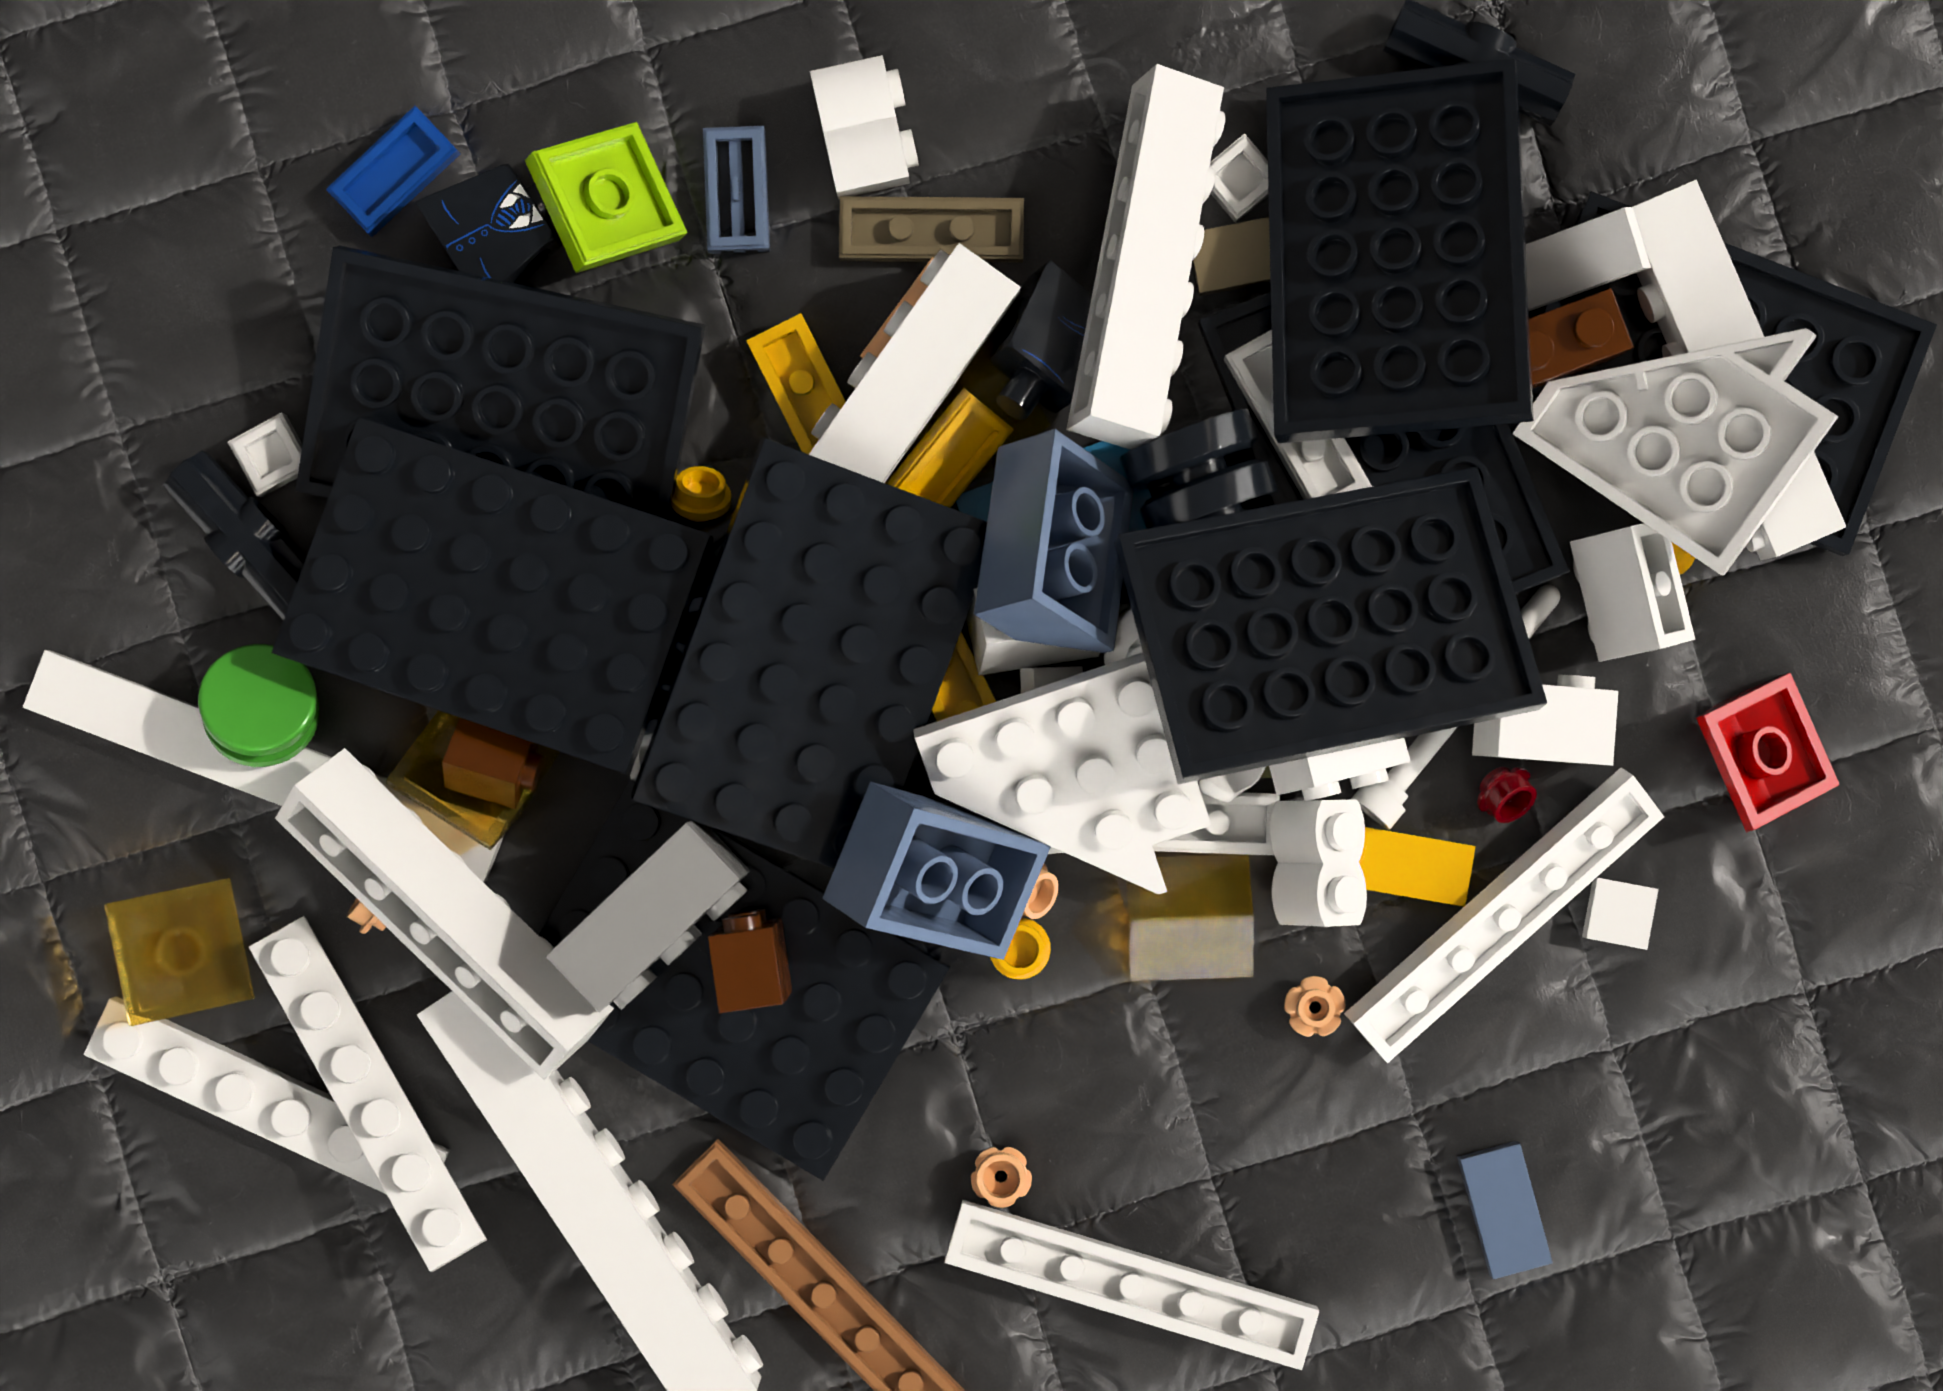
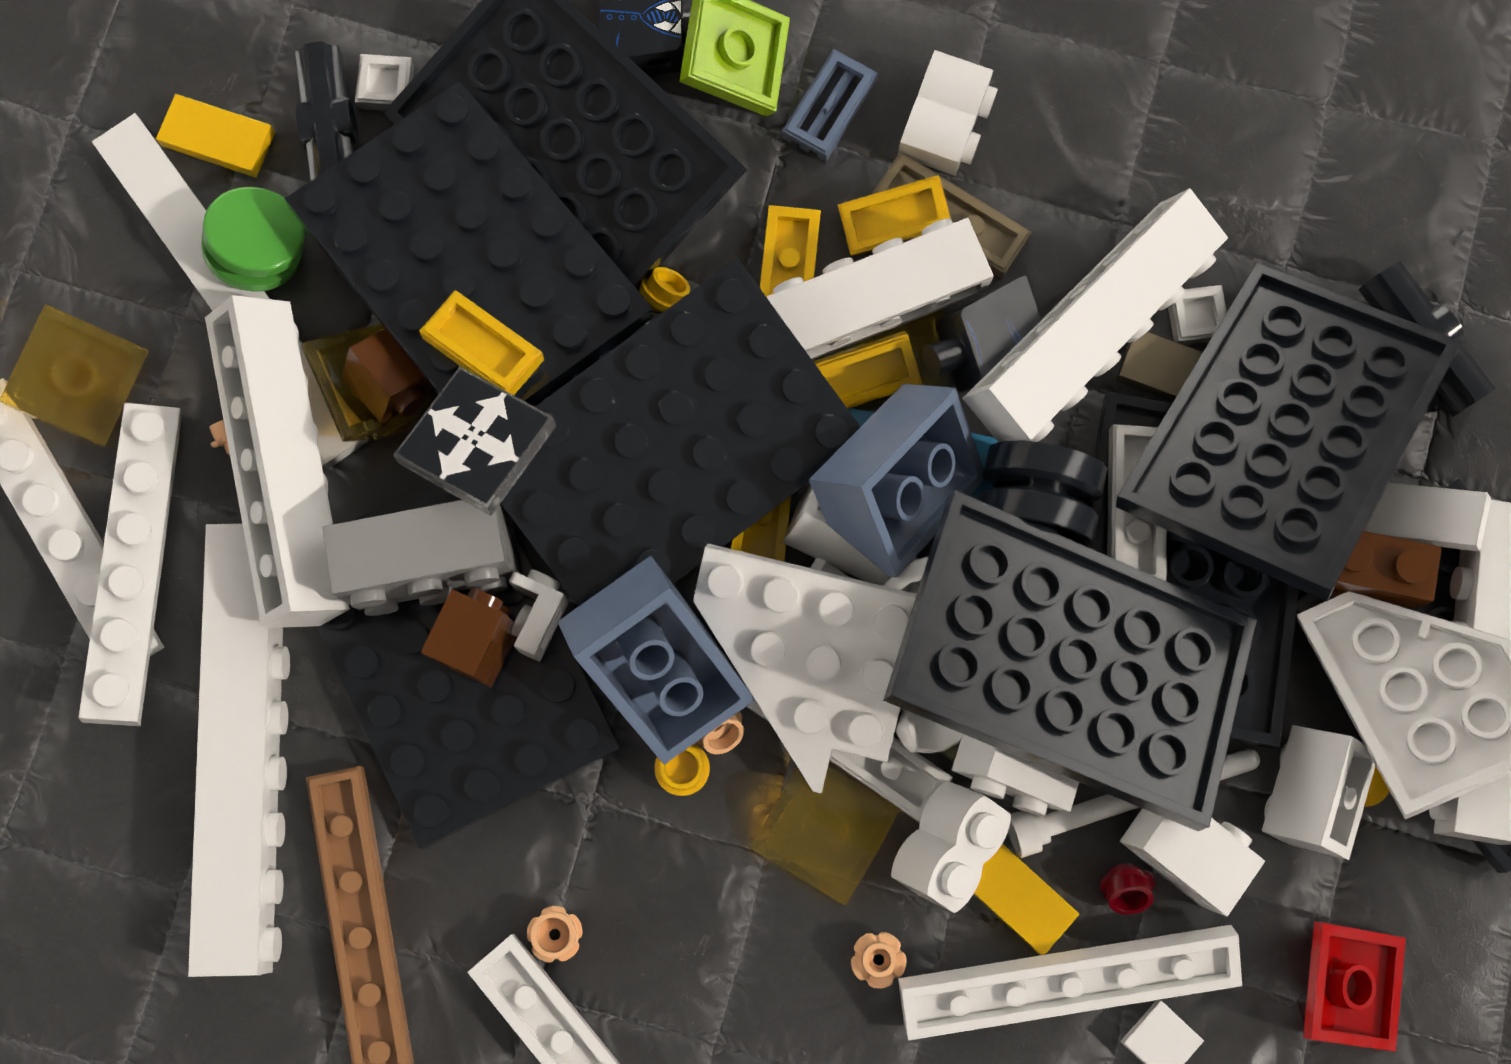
camera: 30 degrees right, 10 degrees down
(140, 619) = (215, 135): none -> yellow tile
(573, 681) = (481, 343): none -> yellow tile
(634, 782) = (475, 440): none -> tile
(799, 906) = (537, 623): none -> white bracket
(878, 270) = (893, 214): none -> yellow tile

